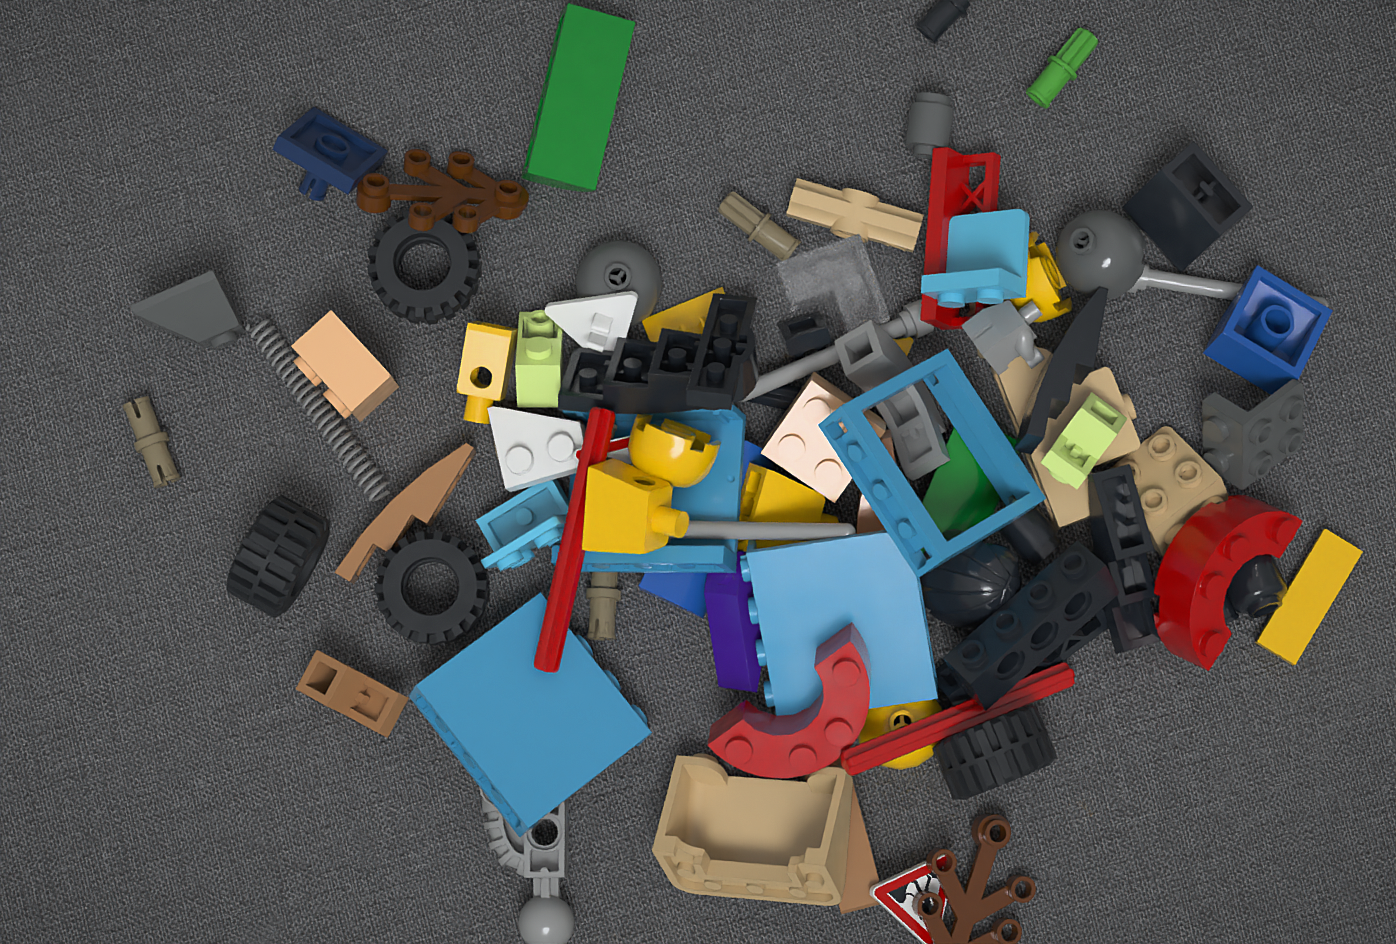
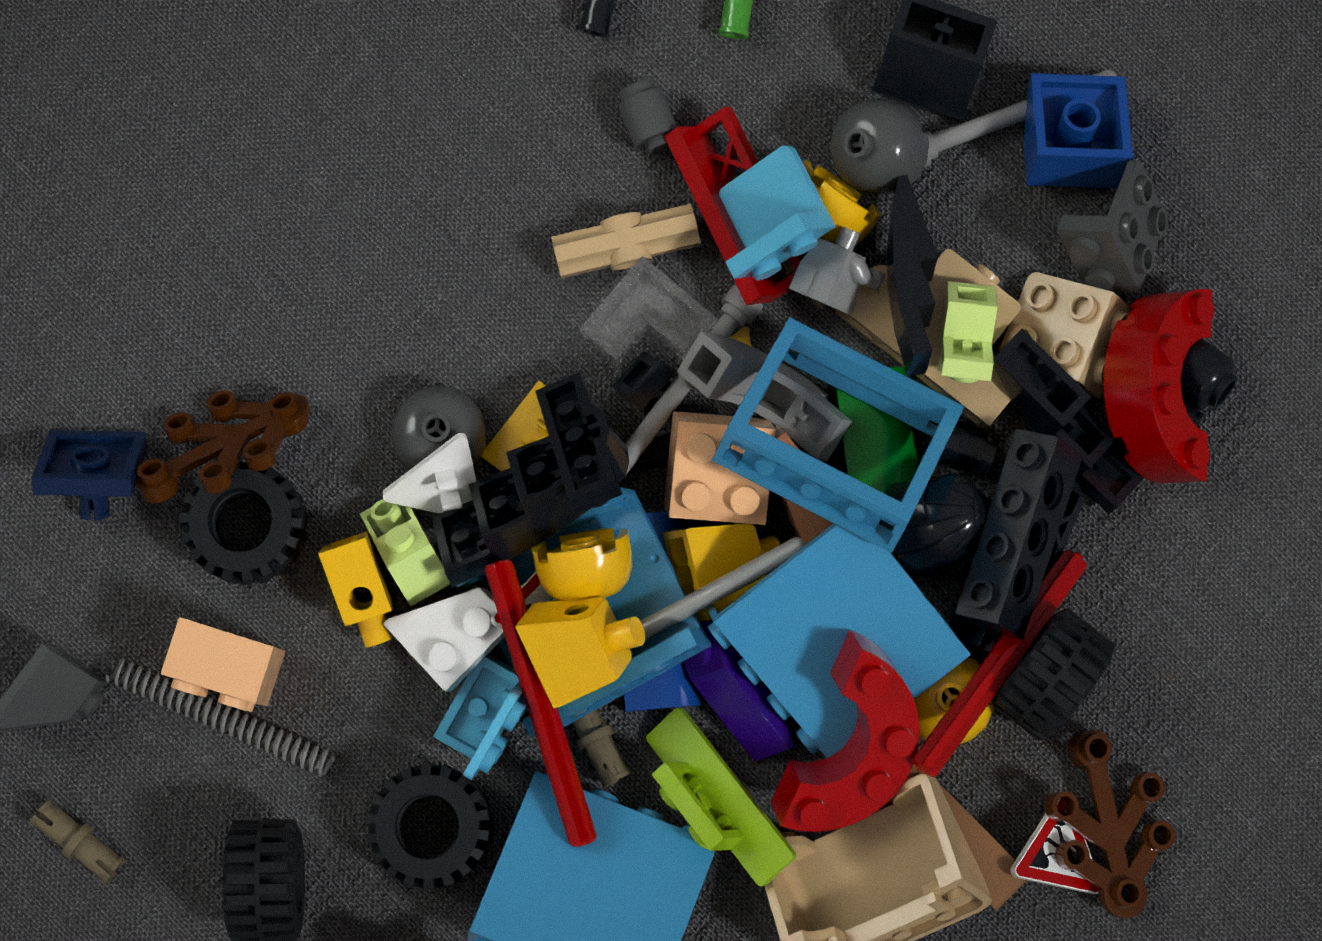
camera: 35 degrees left, 0 degrees up
(419, 500) = (368, 749): medium nougat slope -> none
(578, 99) = (299, 280): green brick -> none
(668, 696) = (714, 799): none -> lime bracket
(758, 226) = (540, 303): dark tan axle -> none
(1309, 596) = (1256, 356): yellow tile -> none

